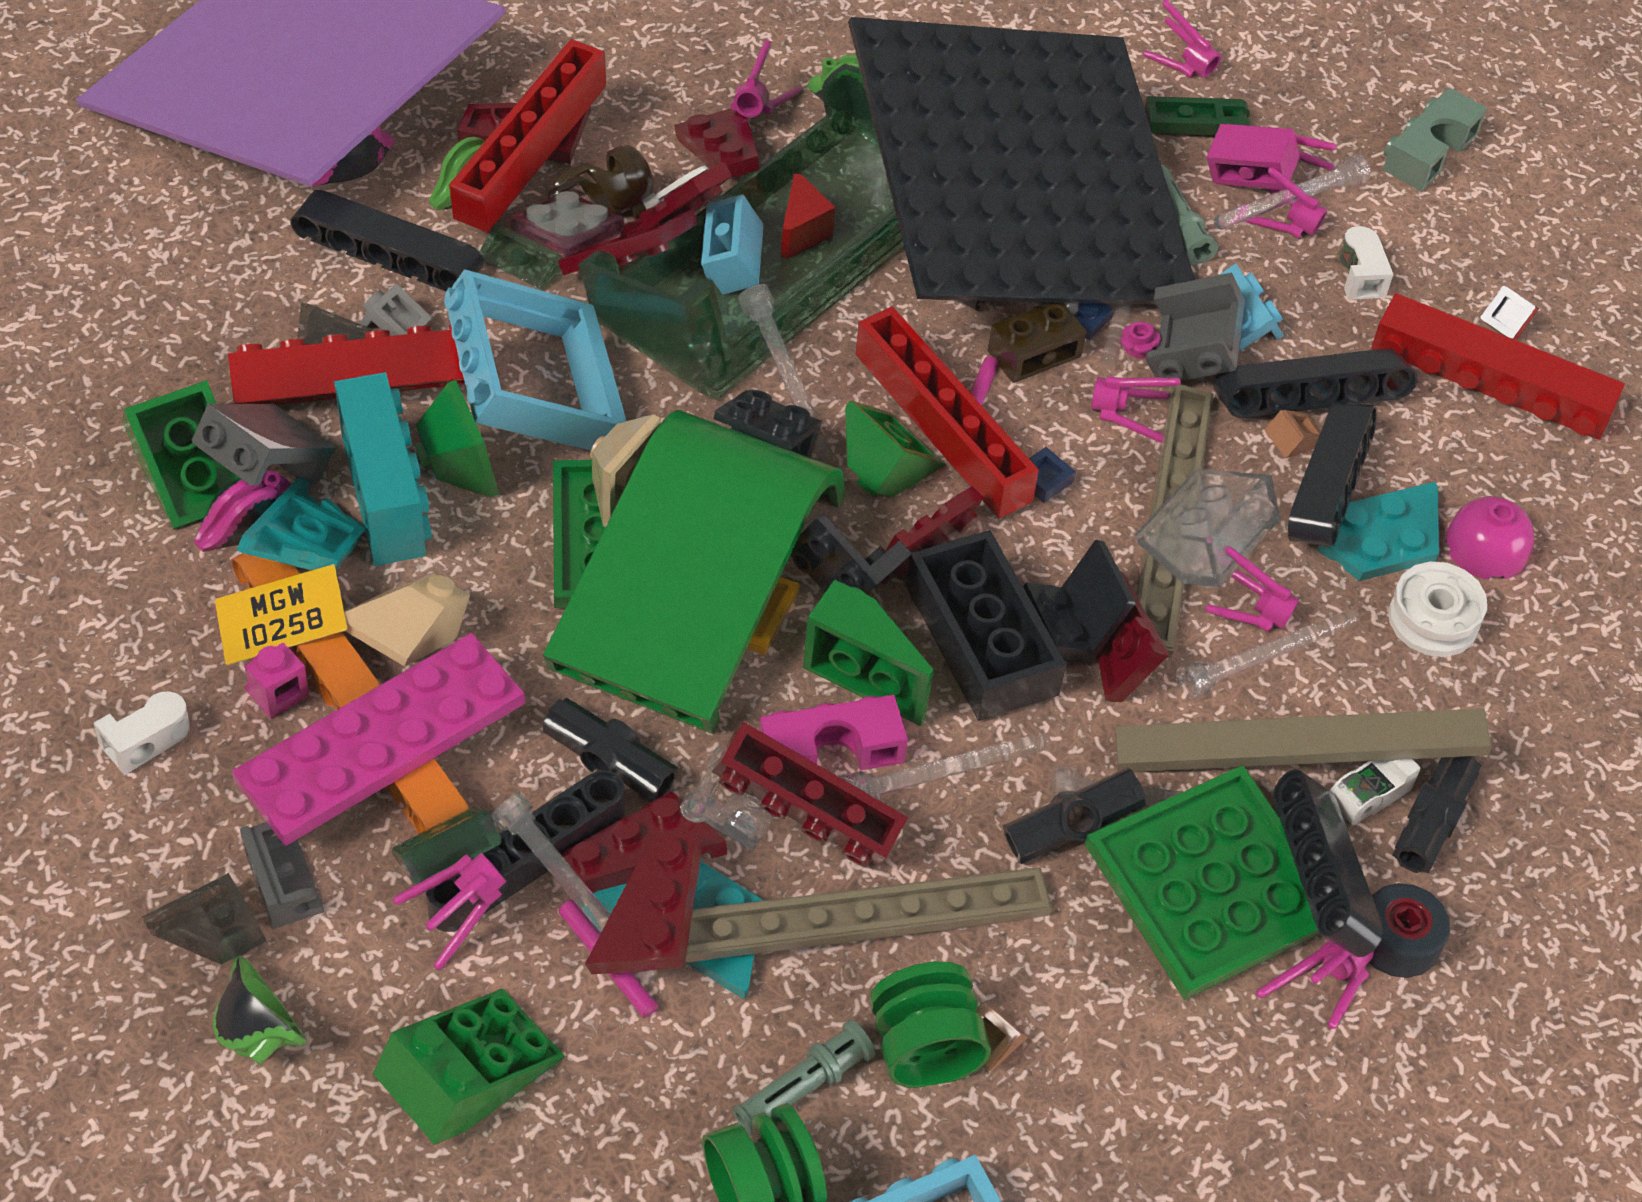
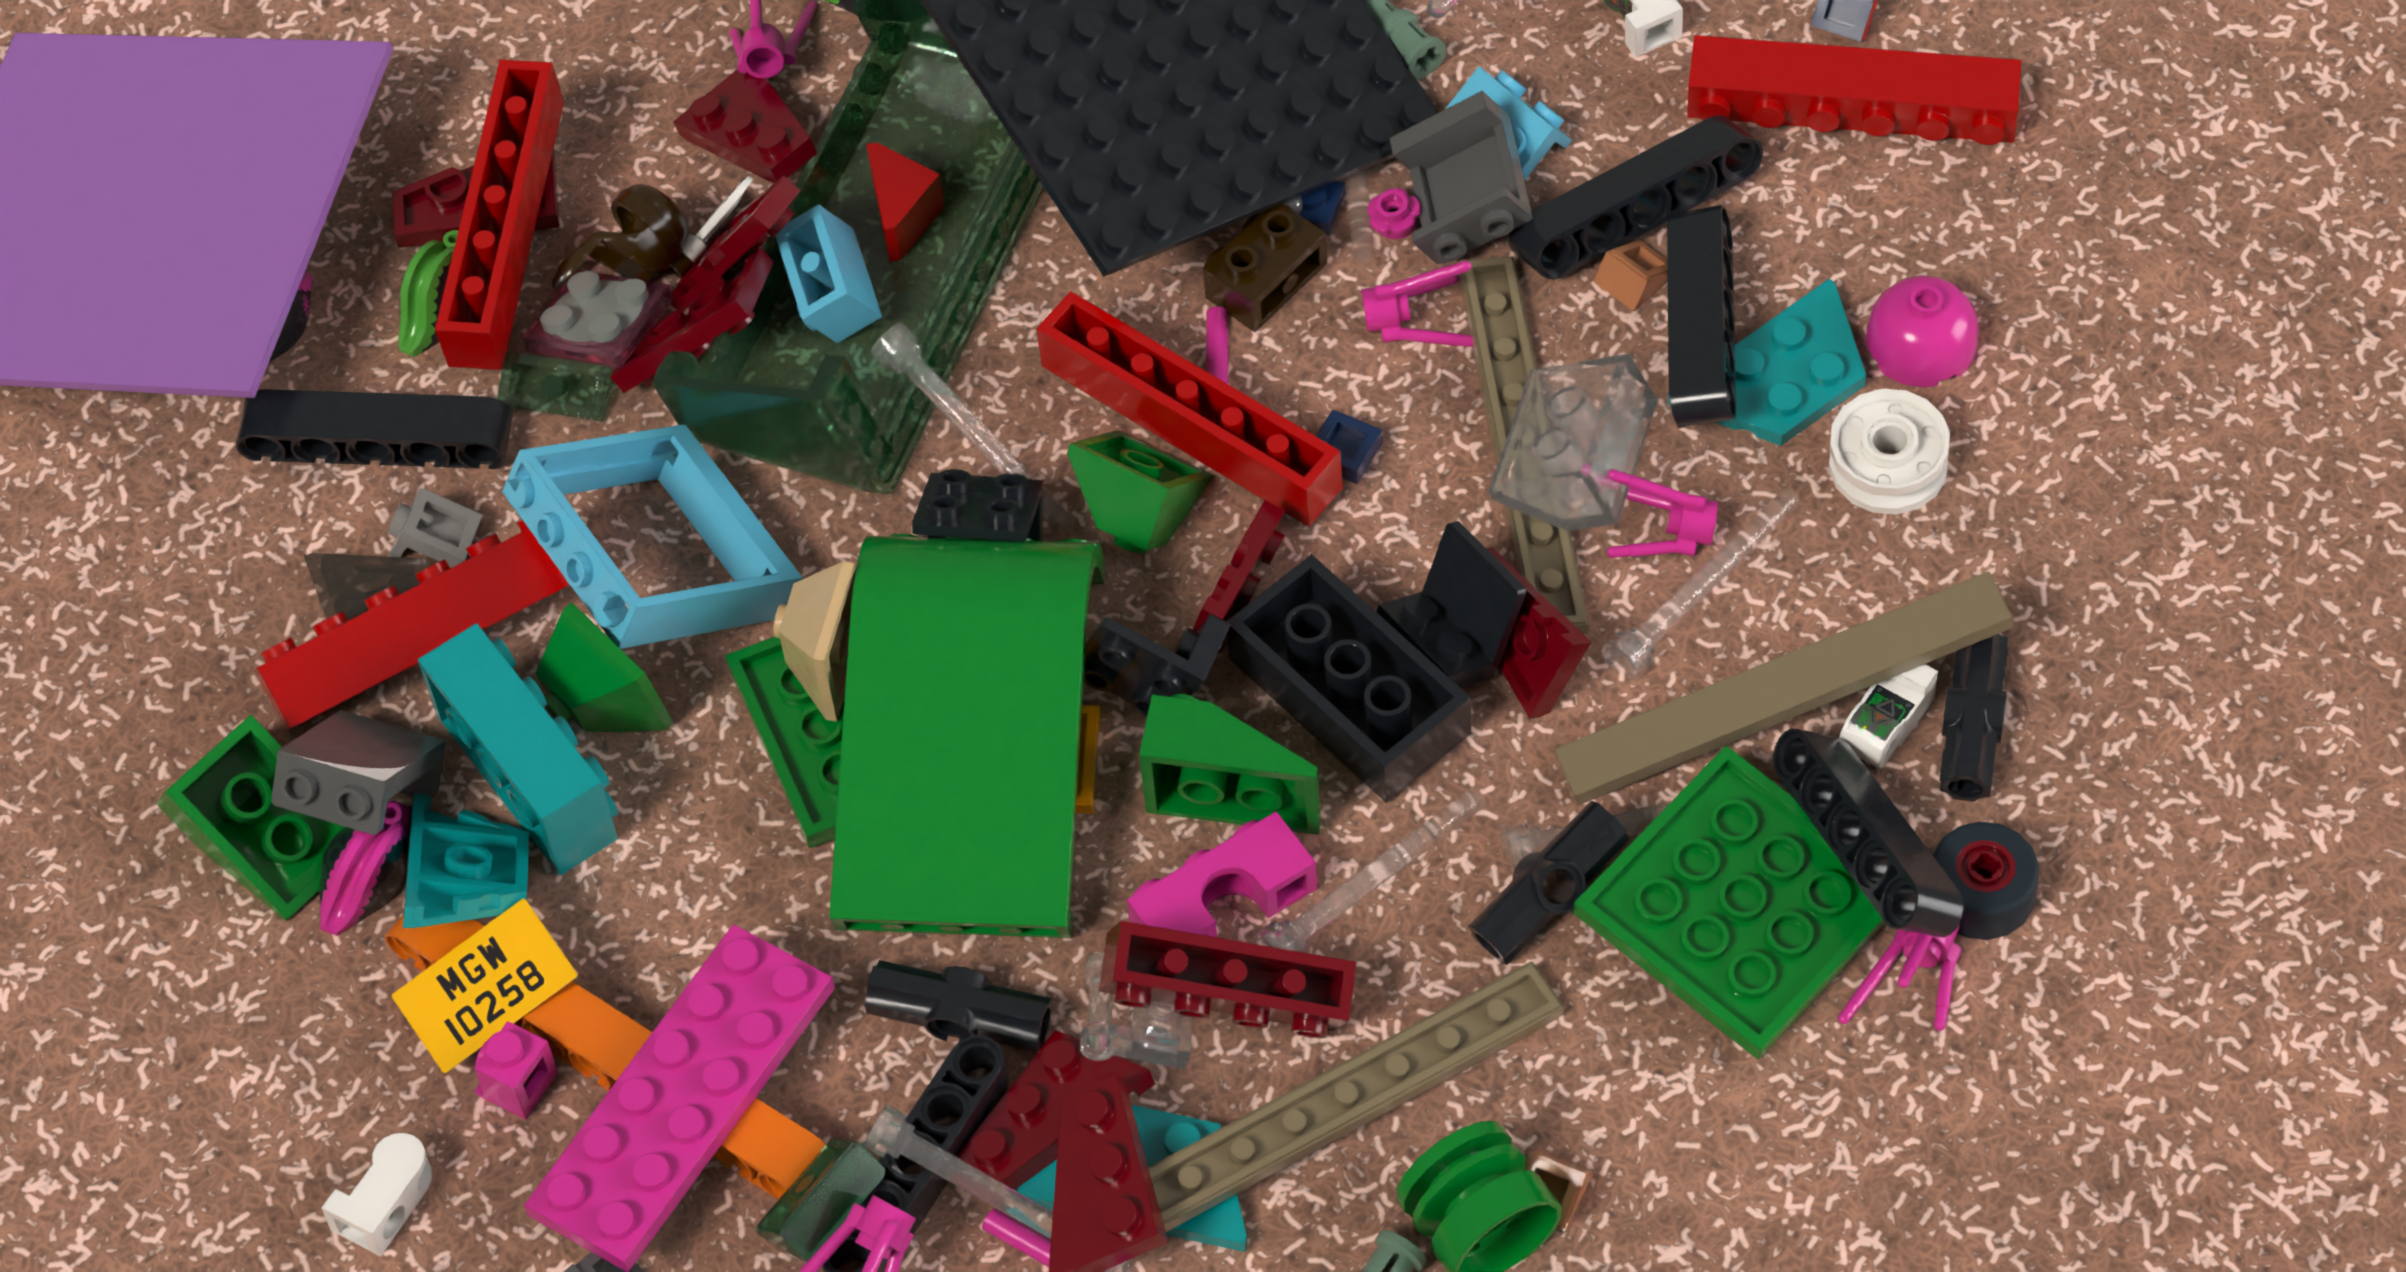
camera: 10 degrees left, 5 degrees up
(410, 618) = (641, 930): tan slope -> none

